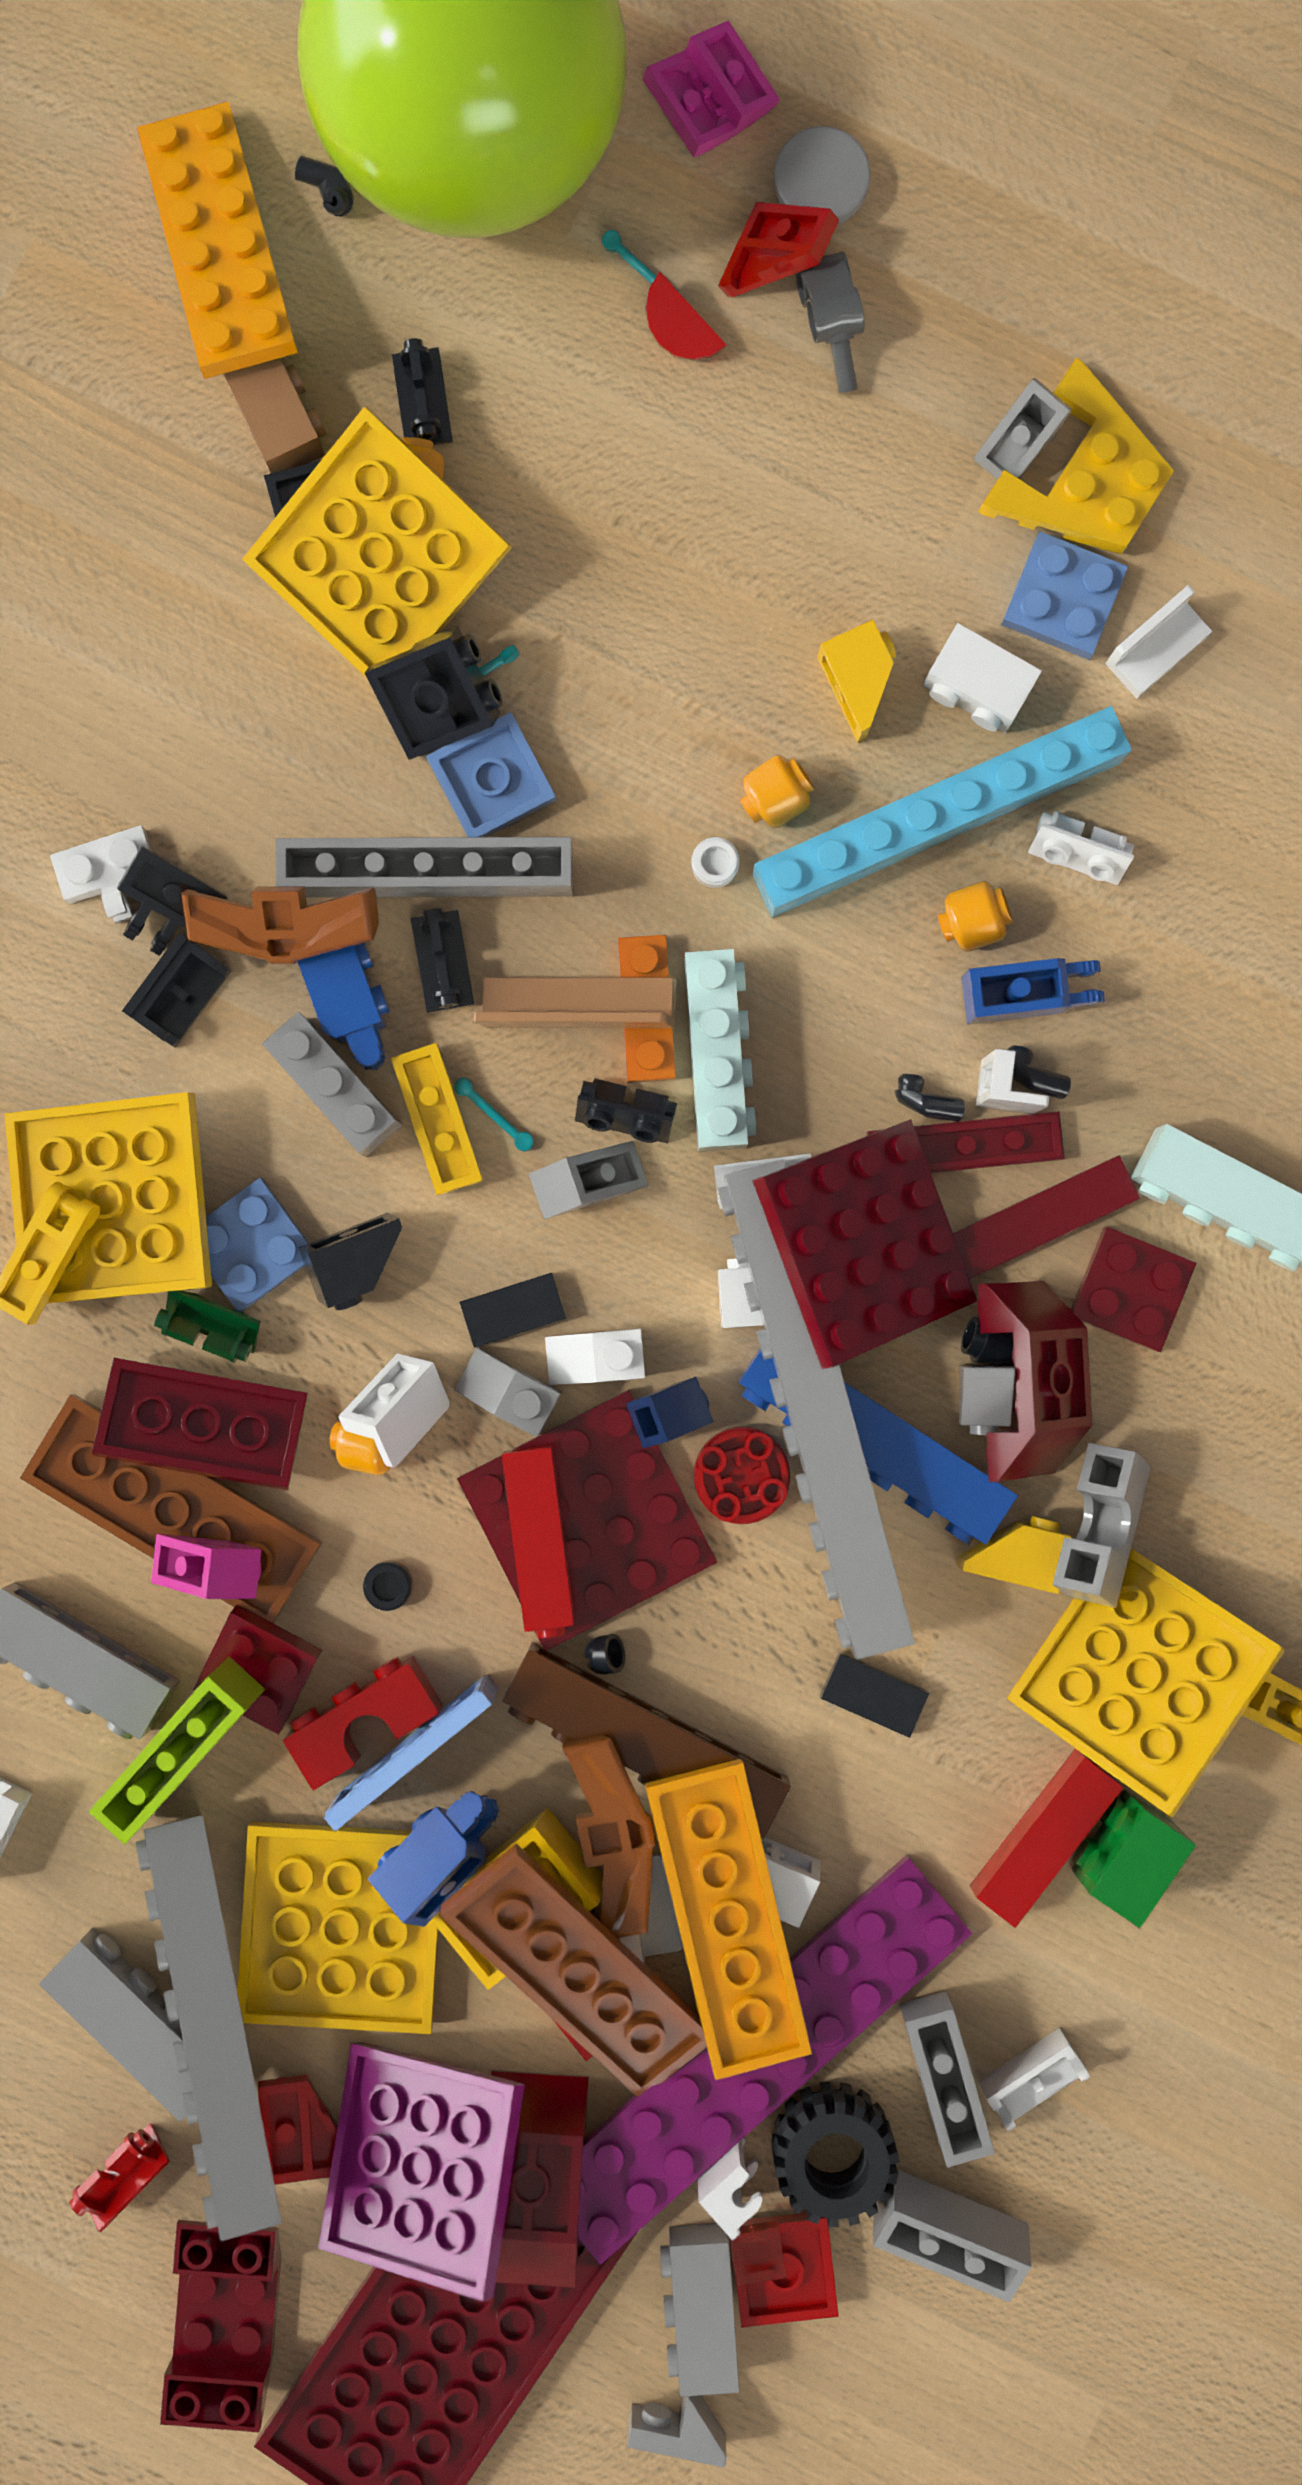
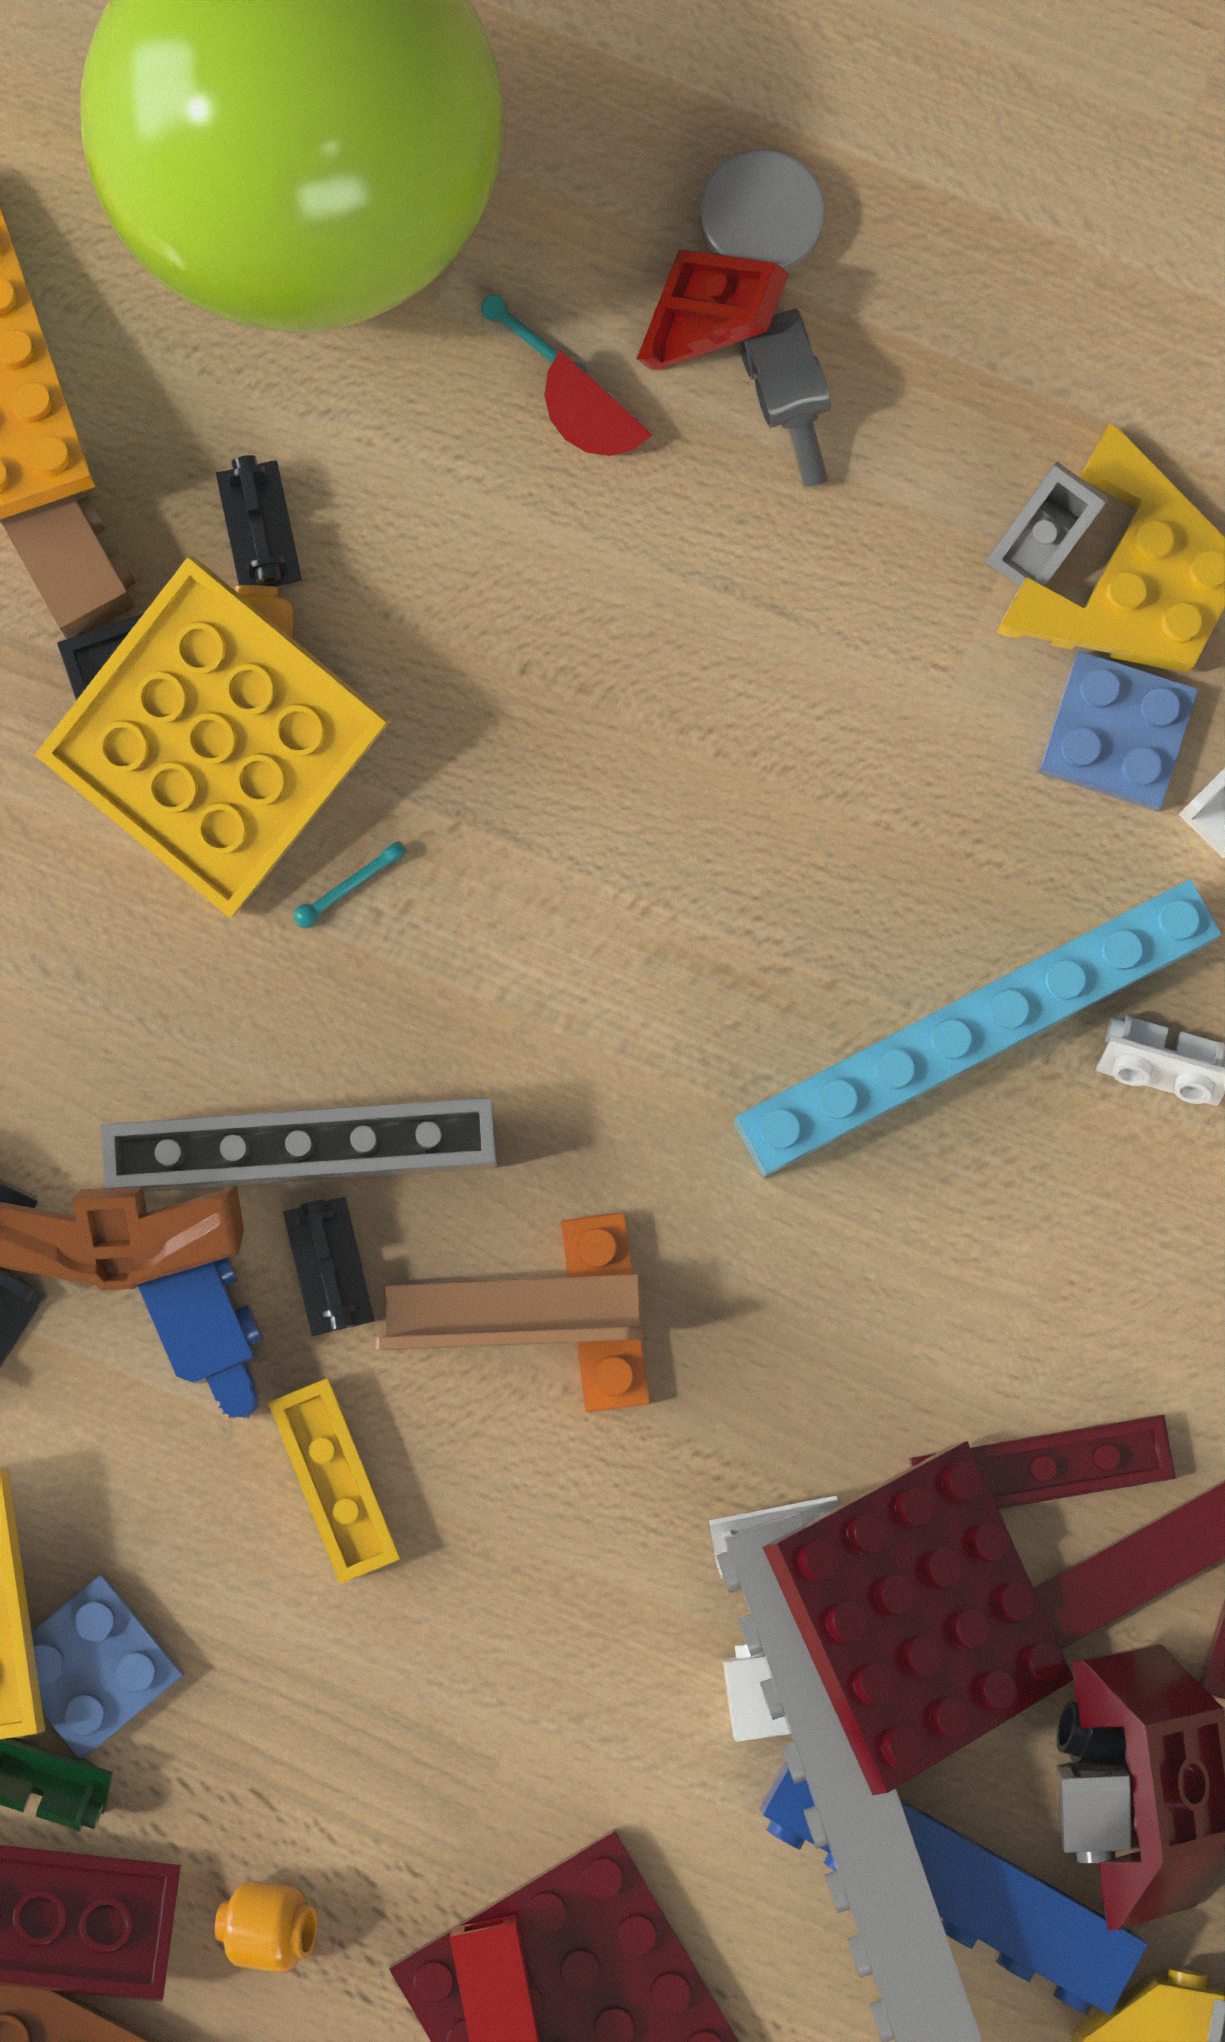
camera: 10 degrees left, 5 degrees down
(331, 183) = (106, 246): black arm -> none
(331, 1084) = (190, 1444): light grey arch -> none
(350, 1260) = (229, 1680): black slope -> none
(397, 1407) = (304, 1878): white panel -> none
(435, 692) = (300, 914): black plate -> none
(464, 1087) = (450, 1500): teal hinge -> none
(491, 778) = (379, 1019): medium blue plate -> none
(508, 1392) = (452, 1846): light grey slope -> none
(512, 1310) = (451, 1732): black tile -> none
(588, 1179) = (541, 1549): light grey slope -> none
(595, 1357) = (567, 1790): white slope -> none
(603, 1109) = (614, 1461): black hinge -> none
(670, 1412) = (672, 1860): dark blue brick -> none
(711, 89) = (610, 108): dark pink slope -> none
(715, 862) = (683, 1111): white tile -> none
(716, 1050) = (701, 1365): light aqua brick -> none
(742, 1475) = (774, 1938): red tile -> none
(777, 791) = (758, 1014): light orange head -> none
(858, 671) = (856, 852): yellow slope -> none
(928, 1104) = (986, 1417): black arm -> none
(975, 916) = (1033, 1162): light orange head -> none
(980, 679) = (1017, 850): white brick -> none
(996, 1082) = (1077, 1388): white panel -> none
(1026, 989) = (1106, 1258): blue hinge -> none
(1038, 1079) = (1127, 1373): black arm -> none

